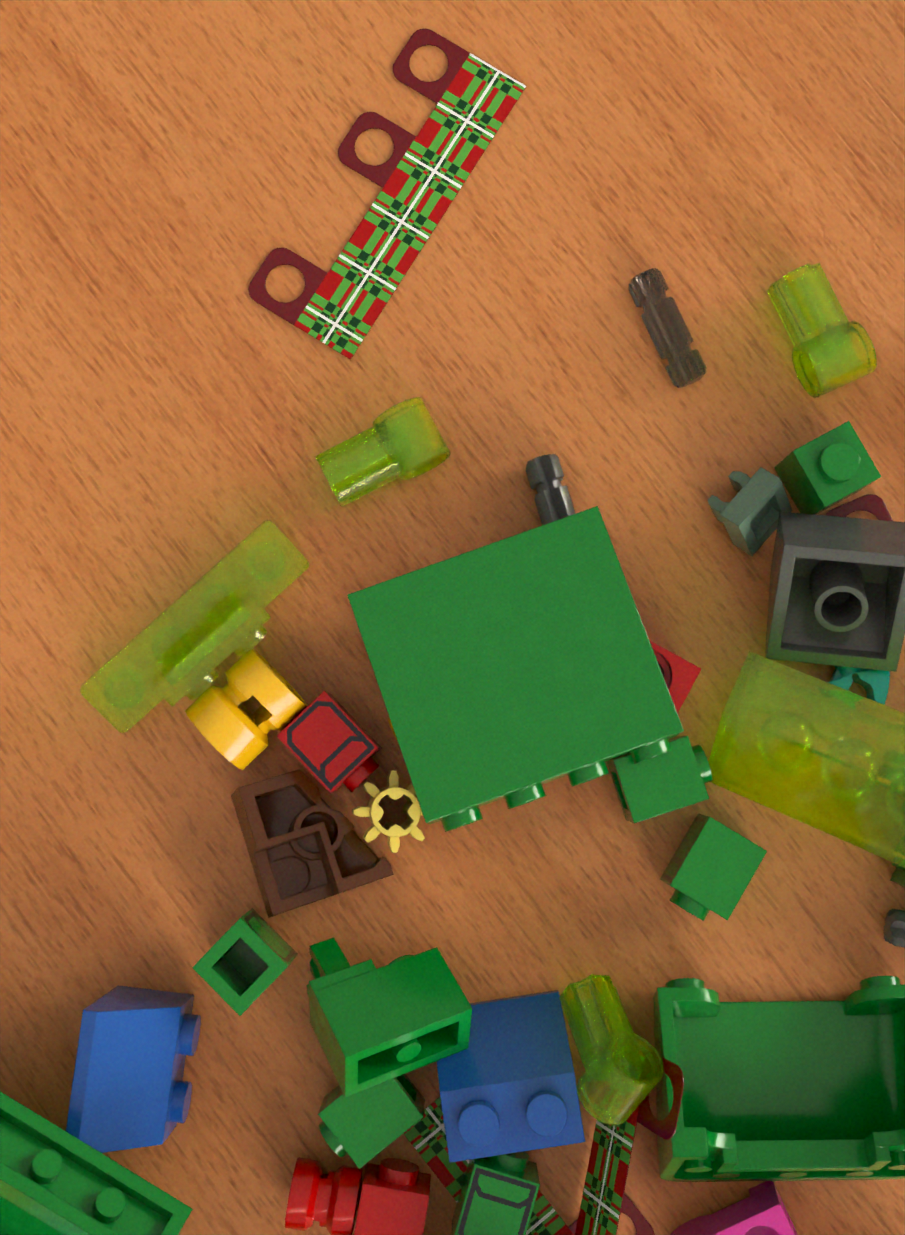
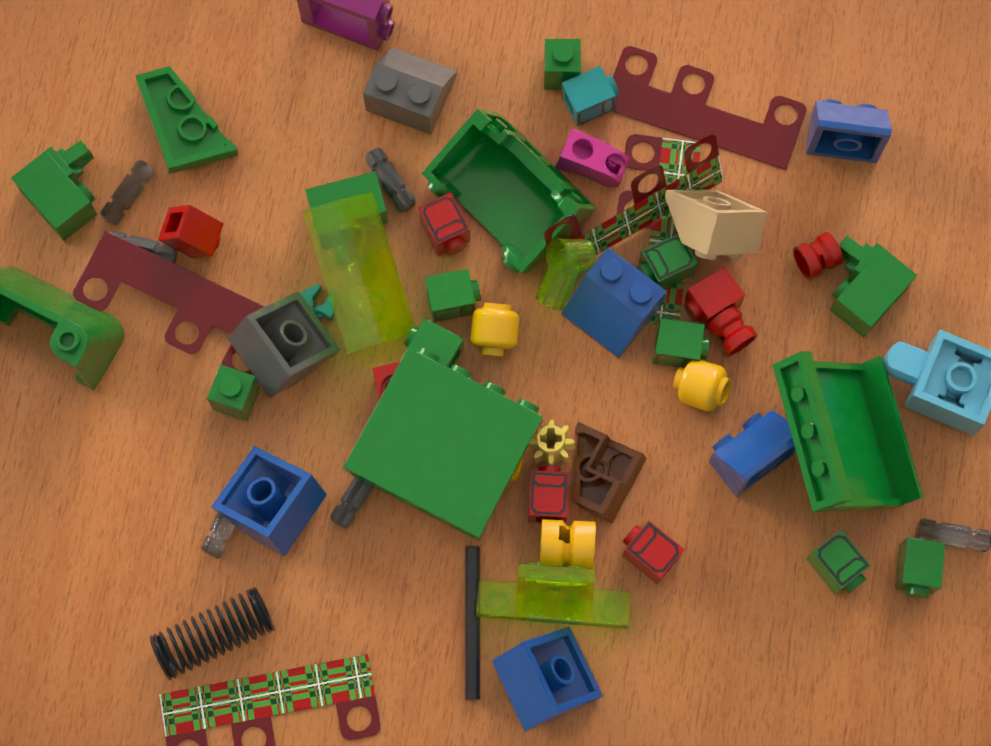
camera: 135 degrees left, 10 degrees down
(112, 532) = (546, 678): none -> blue slope
(141, 808) = (651, 551): none -> red brick
(245, 961) = (670, 445): green brick -> none
(266, 508) = (472, 623): none -> black bar
(287, 1084) = (702, 385): none -> yellow head
(386, 1017) = (638, 367): green hinge -> none
(398, 445) = (390, 589): clear neon green piece -> none
(552, 126) = (167, 660): none -> black piece
(613, 881) = (495, 328): none -> yellow head
(642, 392) = (270, 500): none -> blue slope
(753, 511) = (278, 408): sand green tile -> none
(819, 950) = (445, 225): none -> red brick
(826, 345) = (172, 442): clear neon green piece -> none

